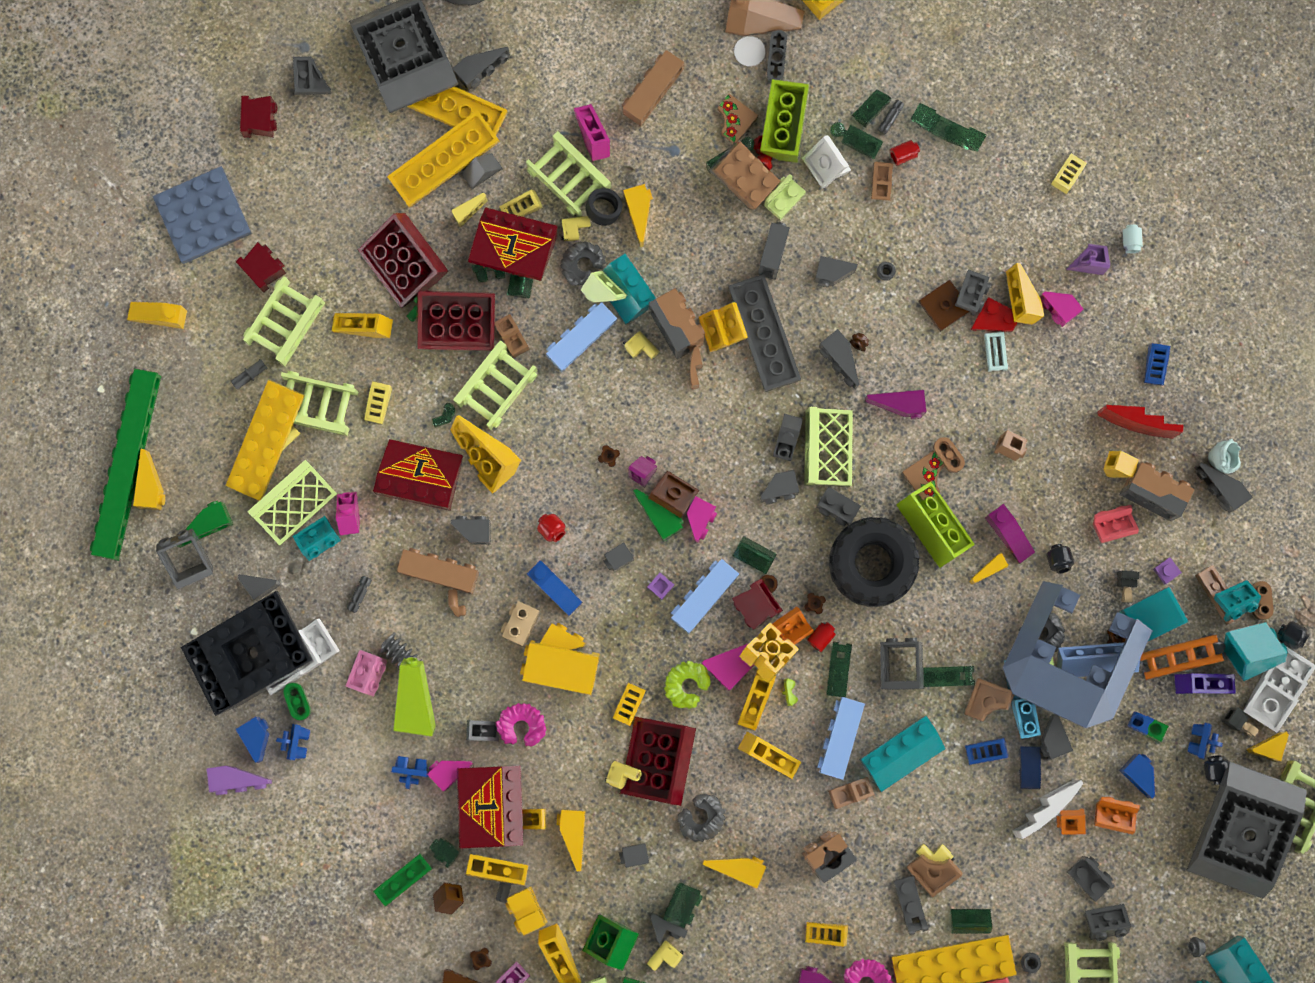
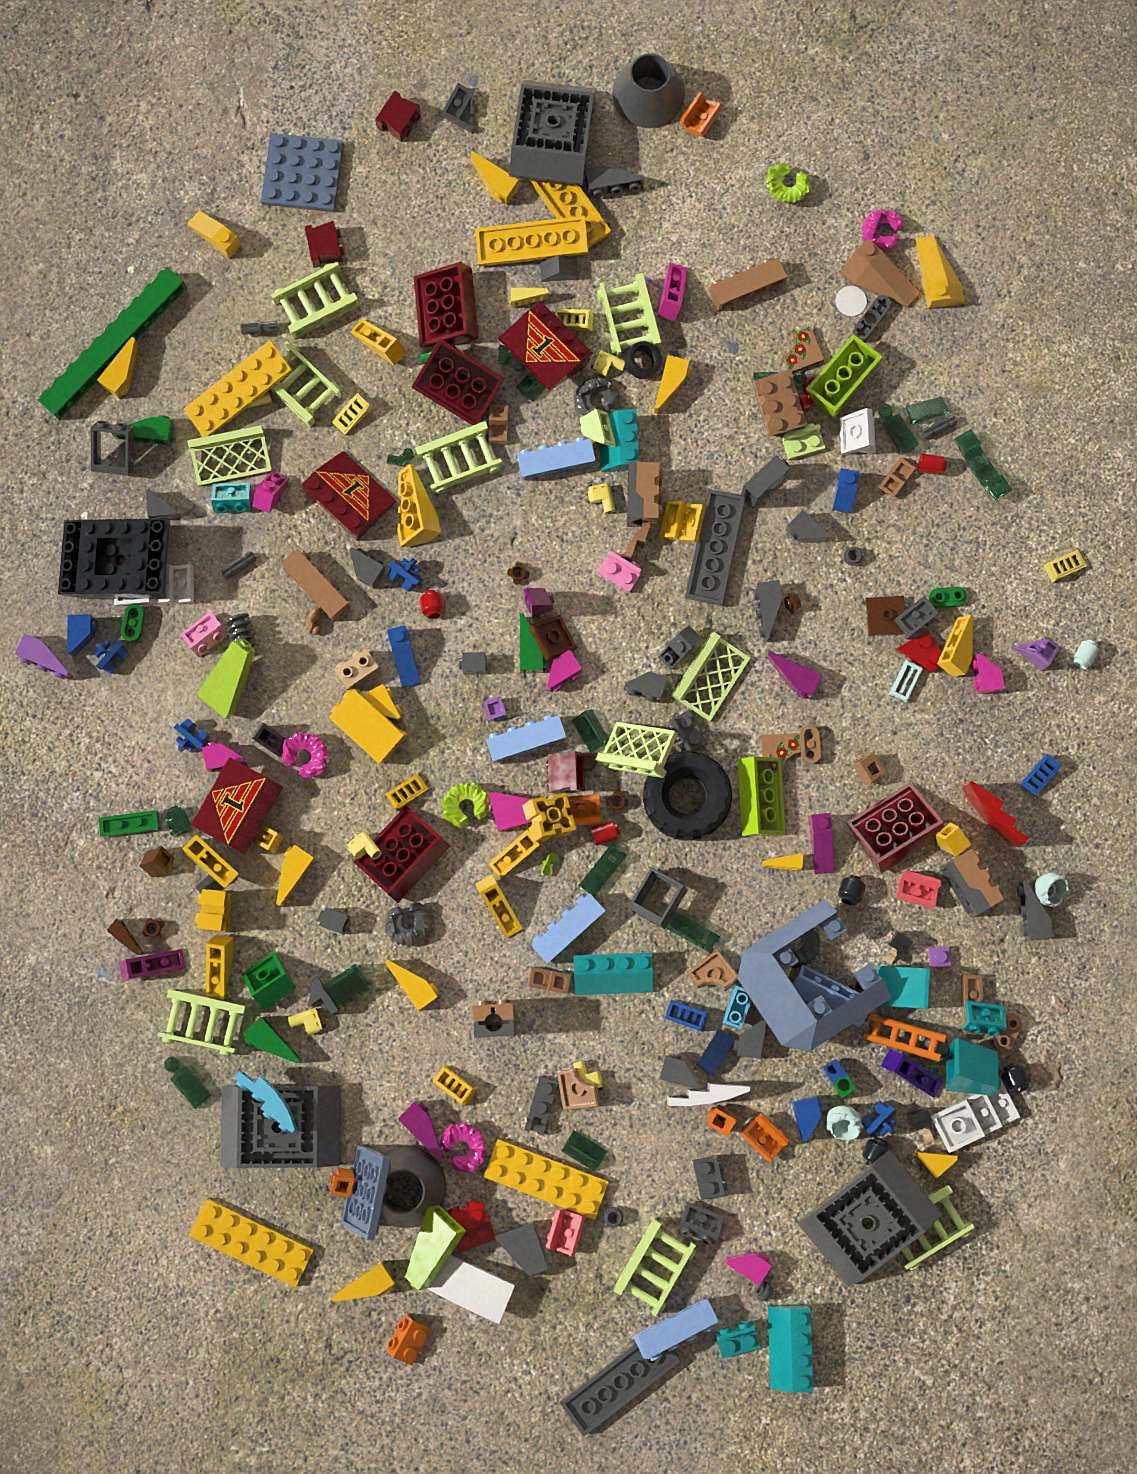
camera: 30 degrees right, 0 degrees up
(379, 123) = (496, 180): none -> yellow slope
(519, 515) = (398, 569): none -> blue hips
(695, 402) = (620, 571): none -> bright pink bracket
(812, 563) = (632, 762): none -> yellowish green fence
(845, 217) = (845, 490): none -> blue slope
(987, 258) = (948, 598): none -> green plate
(1008, 804) = (677, 1072): none -> dark grey slope
(1064, 482) = (896, 827): none -> dark red slope
(1171, 932) = (750, 1265): none -> dark pink slope
(1175, 761) = (844, 1122): none -> light aqua hair

